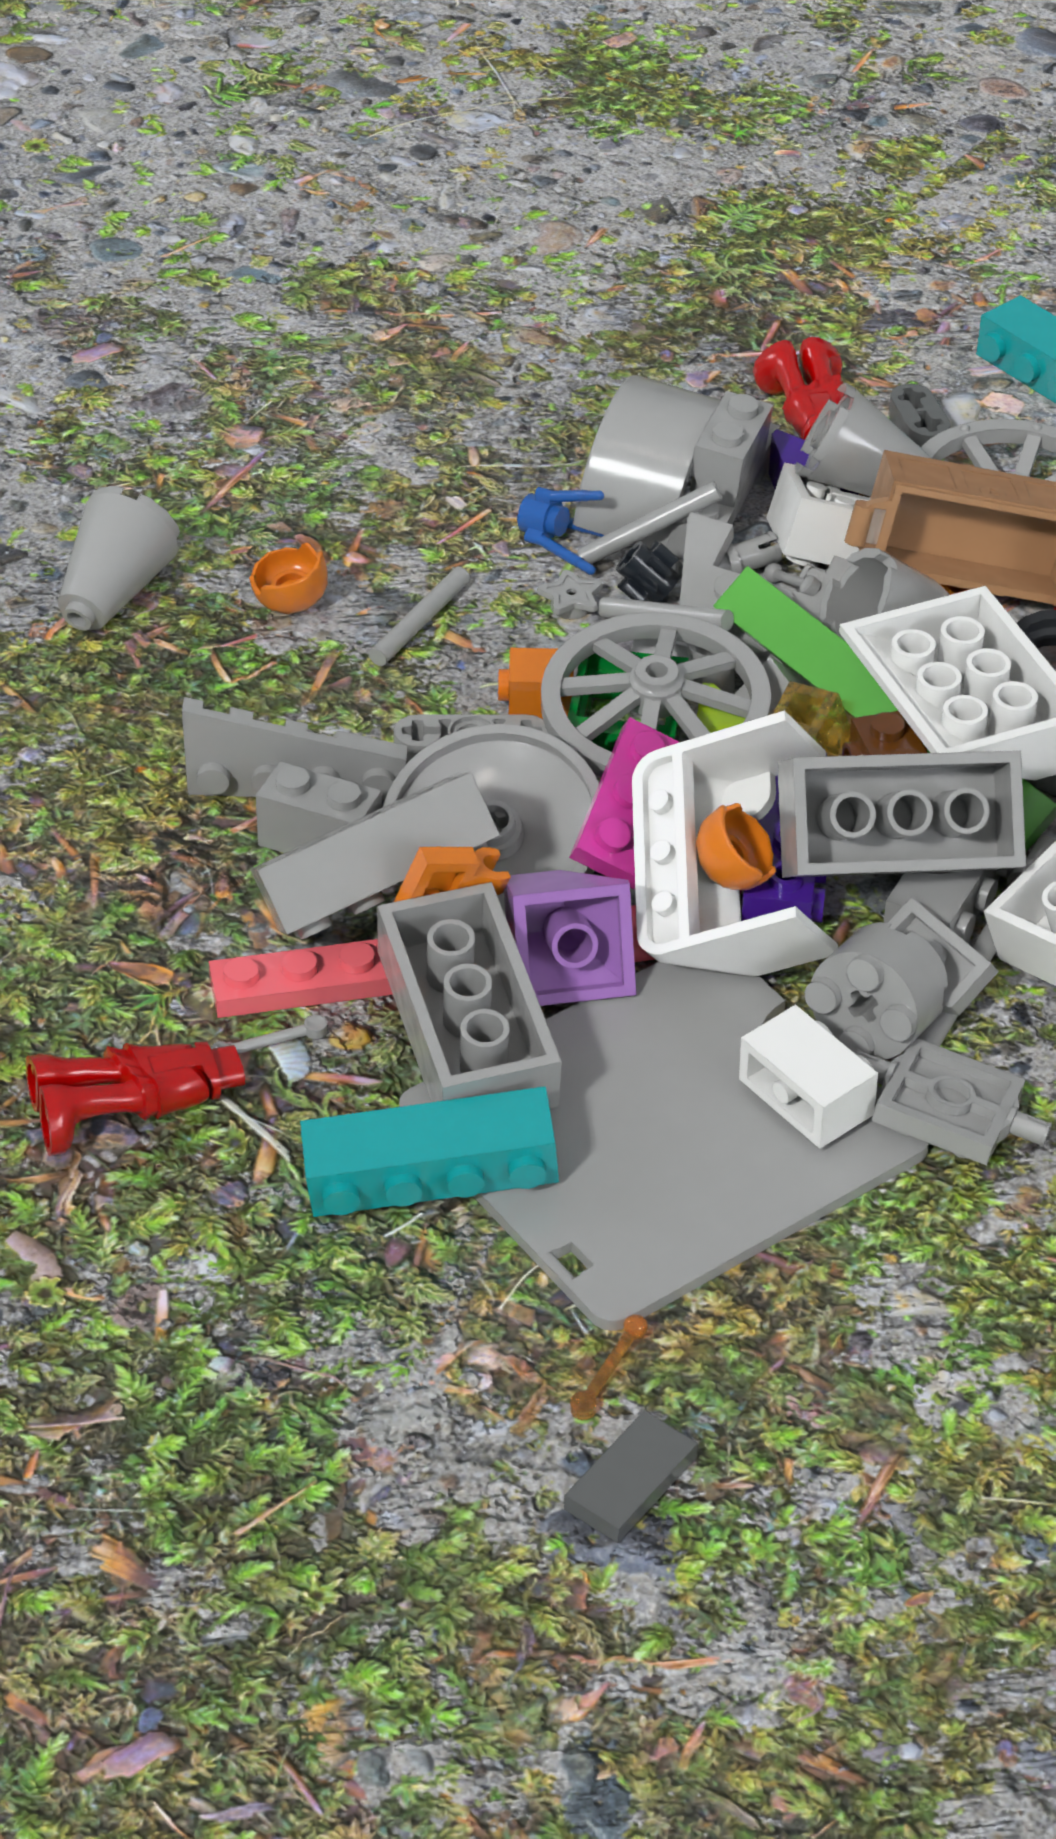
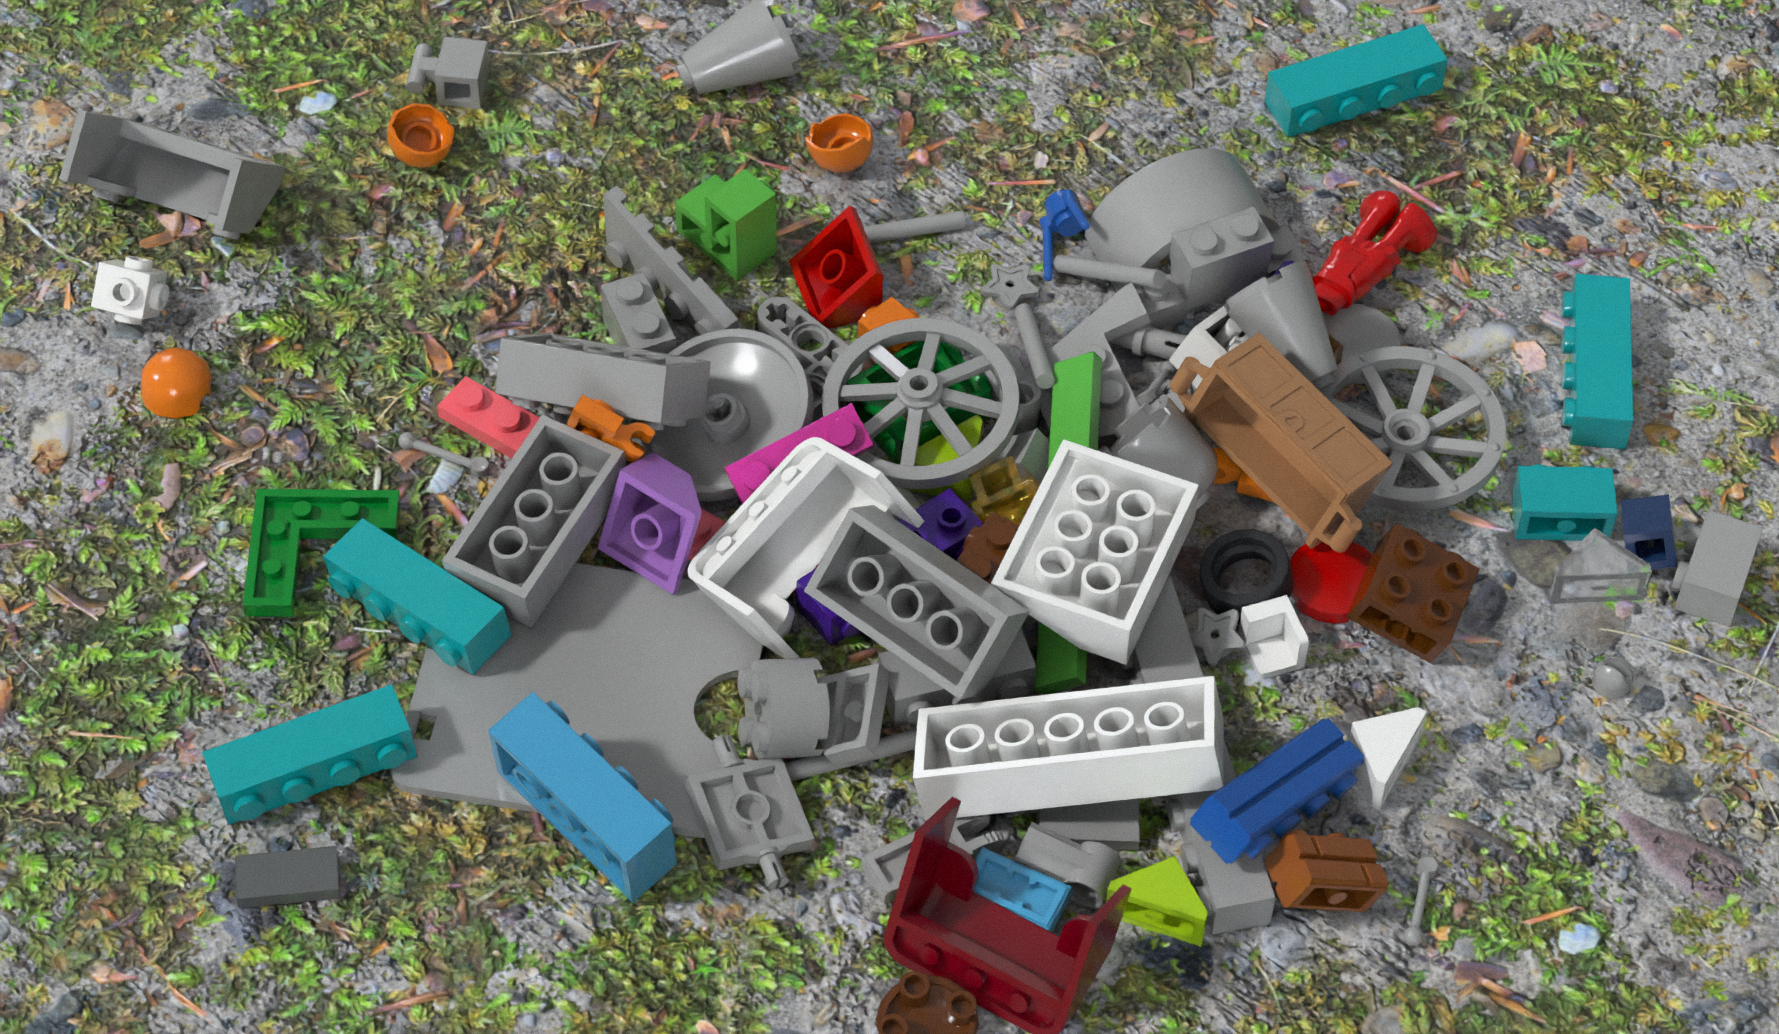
camera: 45 degrees right, 10 degrees up
(138, 1080) = (340, 431): red piece -> none
(212, 1200) = (291, 515): none -> green plate
(293, 684) = (730, 221): none -> bright green brick
(430, 661) = (839, 272): none -> red slope
(519, 1355) = (310, 754): none -> teal brick
(584, 1402) = (322, 816): clear orange hinge -> none
(629, 300) = (1355, 80): none -> teal brick
(648, 572) = (1068, 305): black gear -> none
(734, 849) = (802, 541): orange hair -> none
(808, 1076) = (674, 726): white brick -> none
(827, 1179) = (584, 795): none -> dark azure brick
(917, 412) = (1445, 328): dark grey beam -> none

